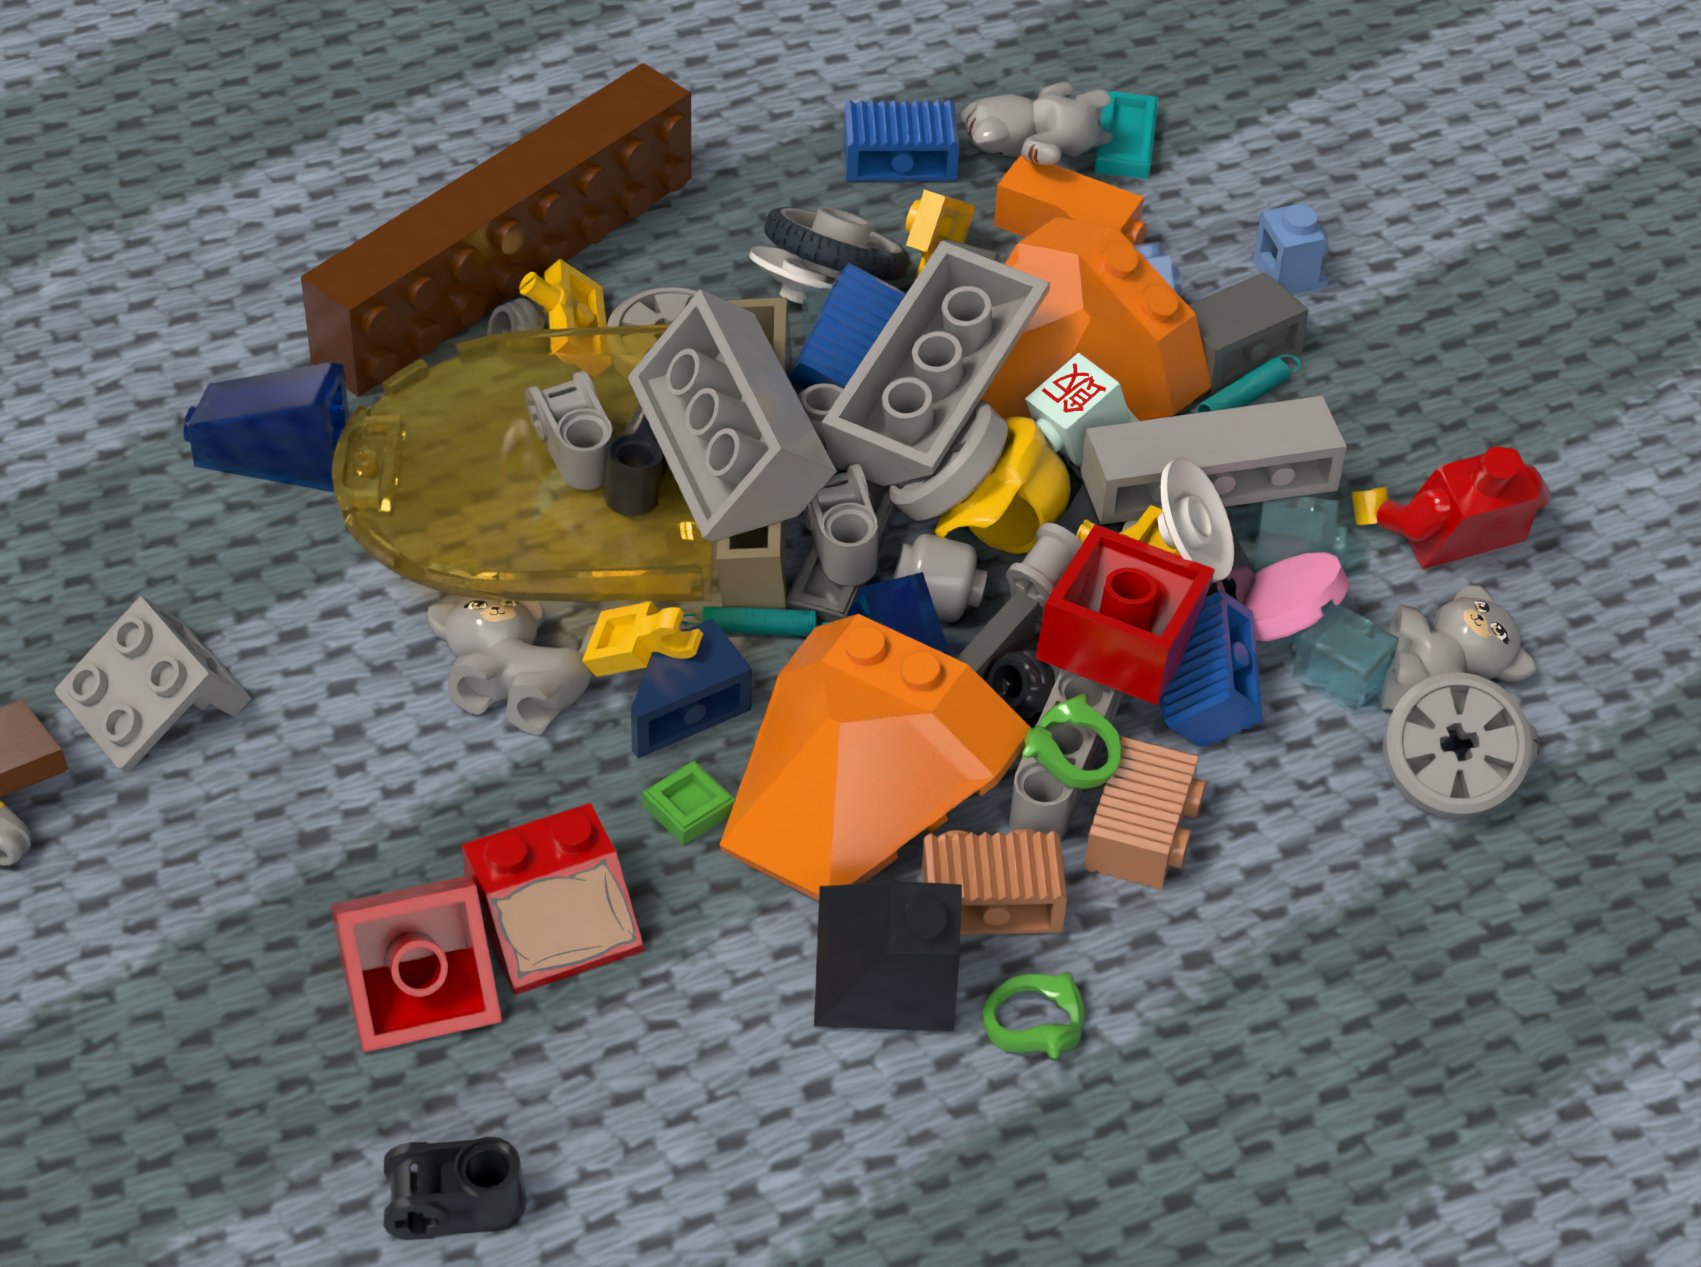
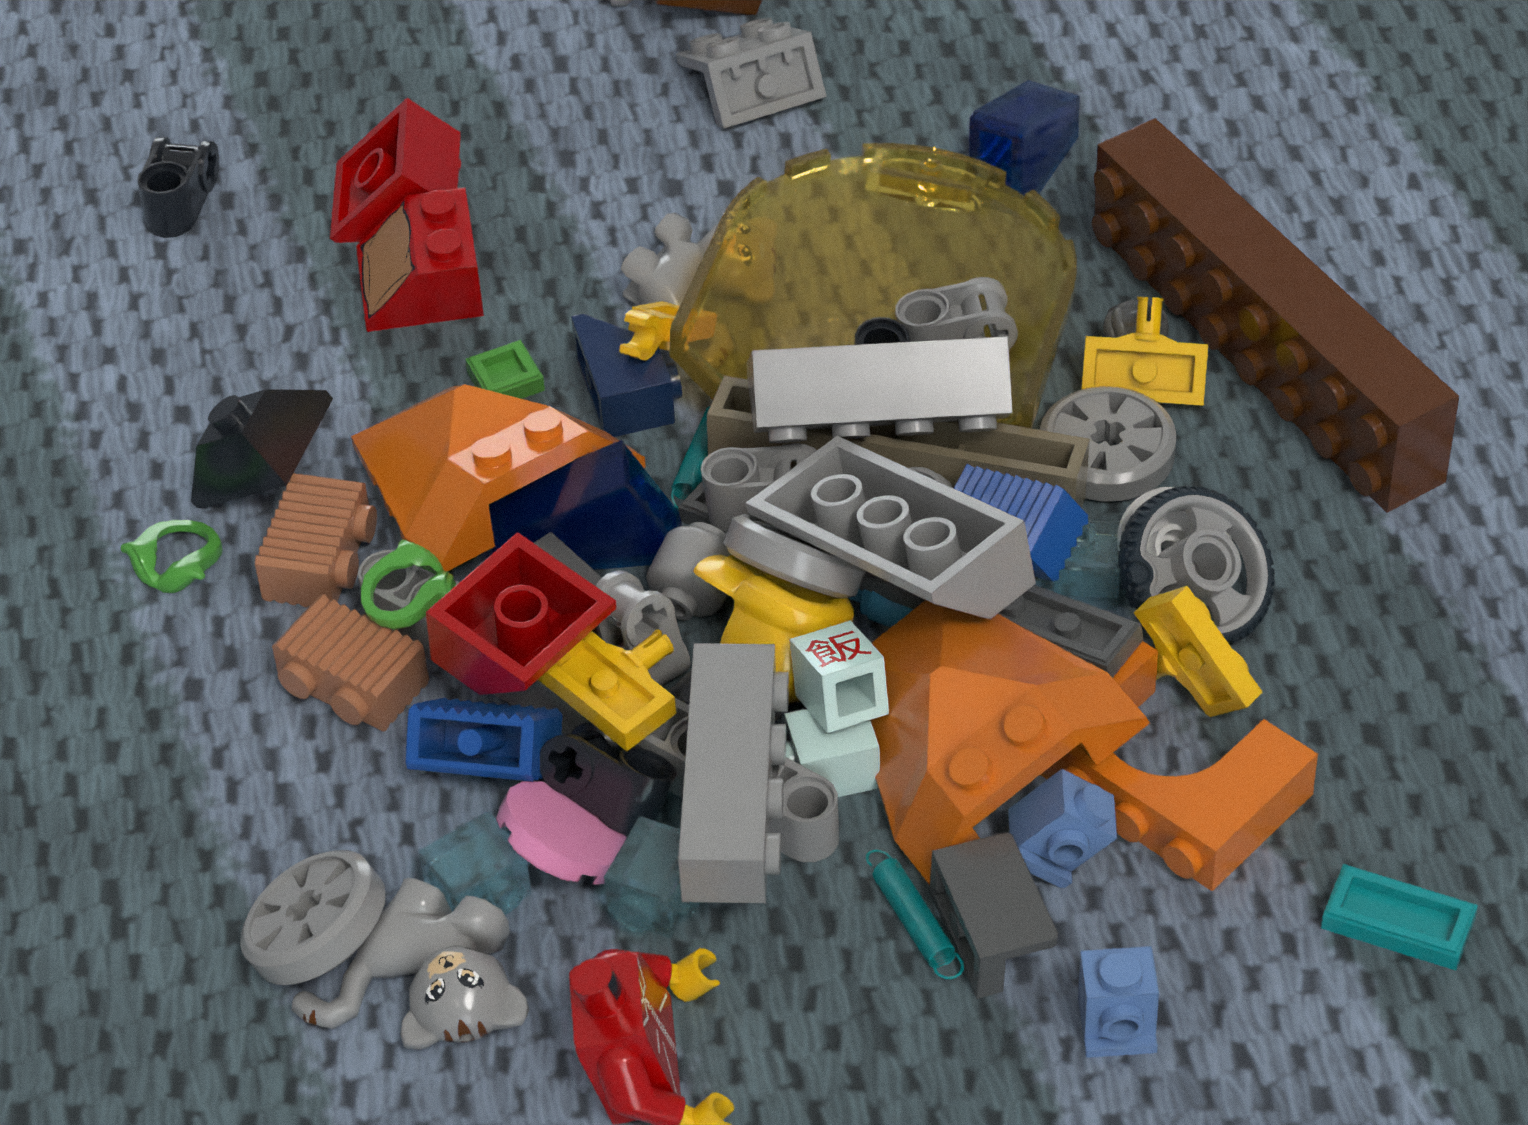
camera: 110 degrees right, 0 degrees up
(900, 141) = (1394, 679): blue brick -> none
(1040, 128) = (1394, 801): light grey animal -> none
(1195, 518) = (575, 696): white dish -> none

